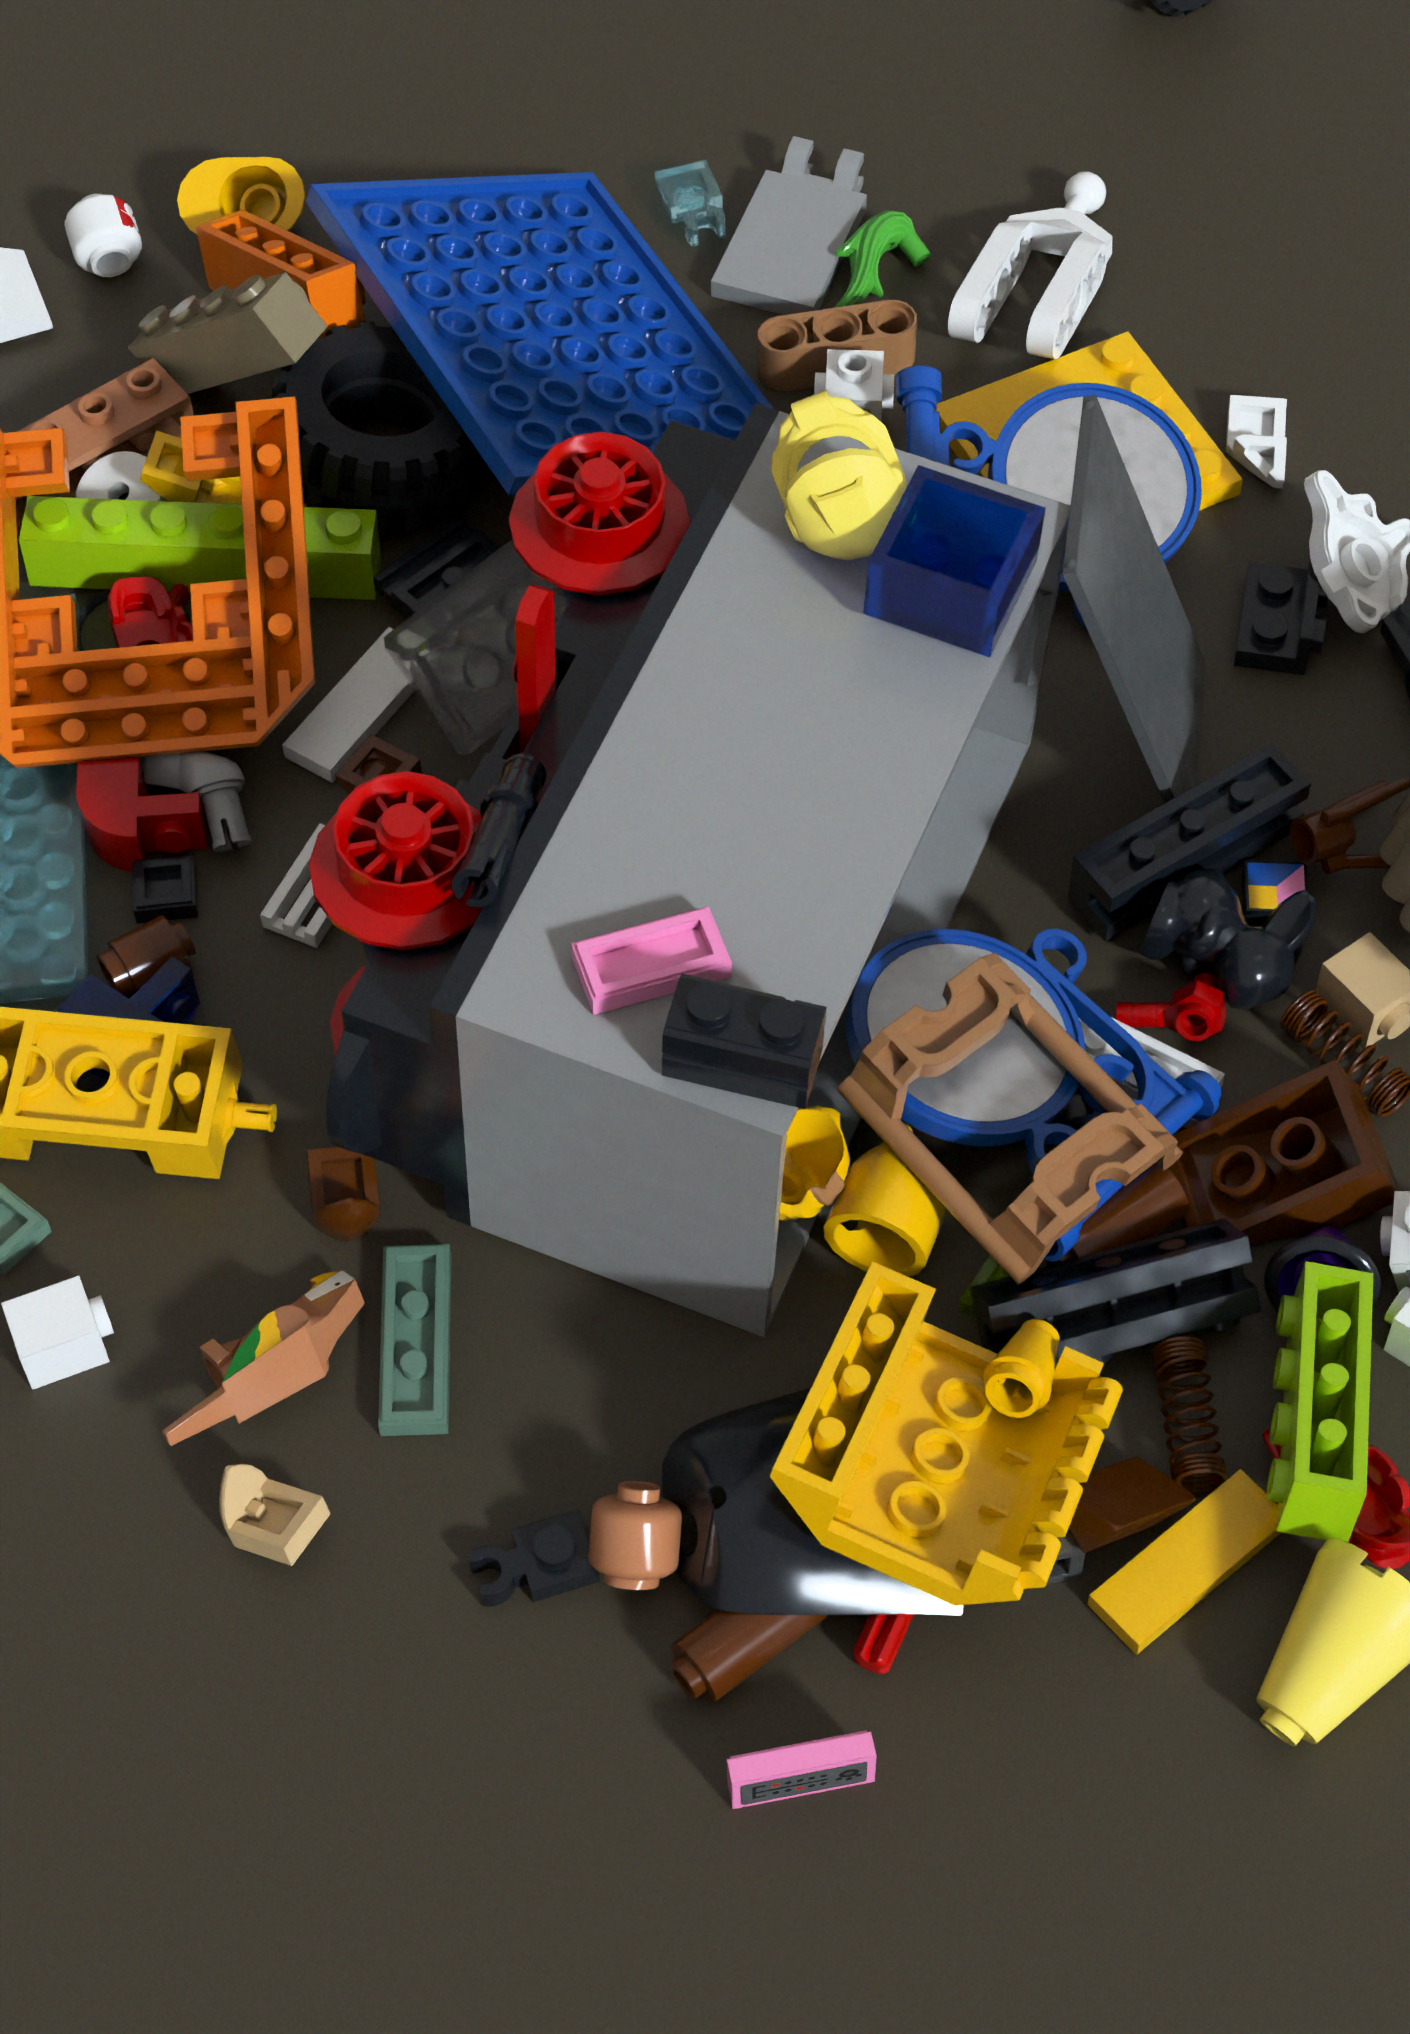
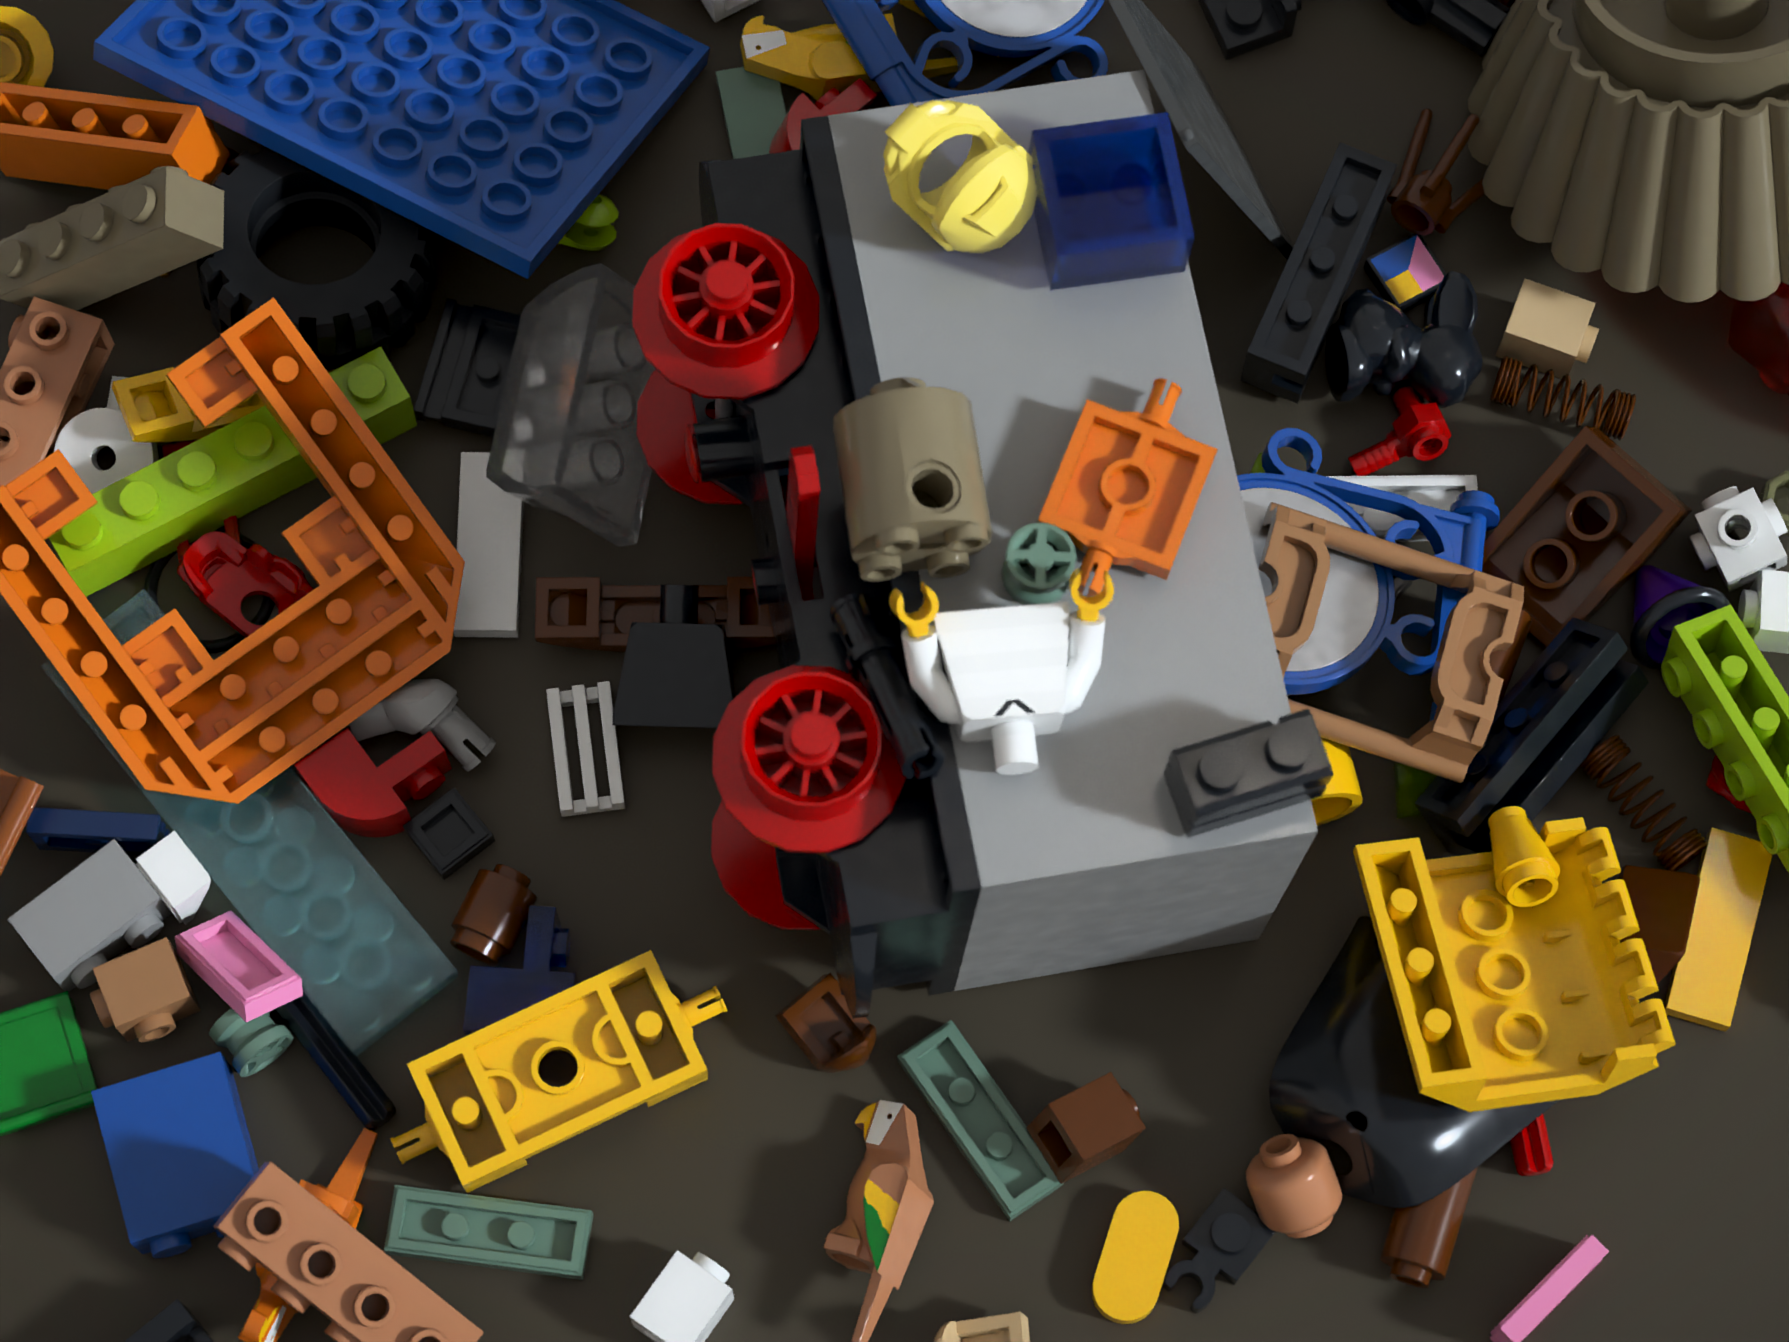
camera: 35 degrees left, 15 degrees up
(461, 1518) = (1135, 1257): none -> yellow tile
(493, 1385) = (1086, 1127): none -> reddish brown brick
(597, 852) = (1005, 668): none -> white torso
(622, 669) = (911, 480): none -> dark tan cylinder
(649, 959) = (1108, 738): bright pink tile -> none
(683, 781) = (1042, 549): none -> sand green wheel
(811, 782) = (1128, 487): none -> orange plate

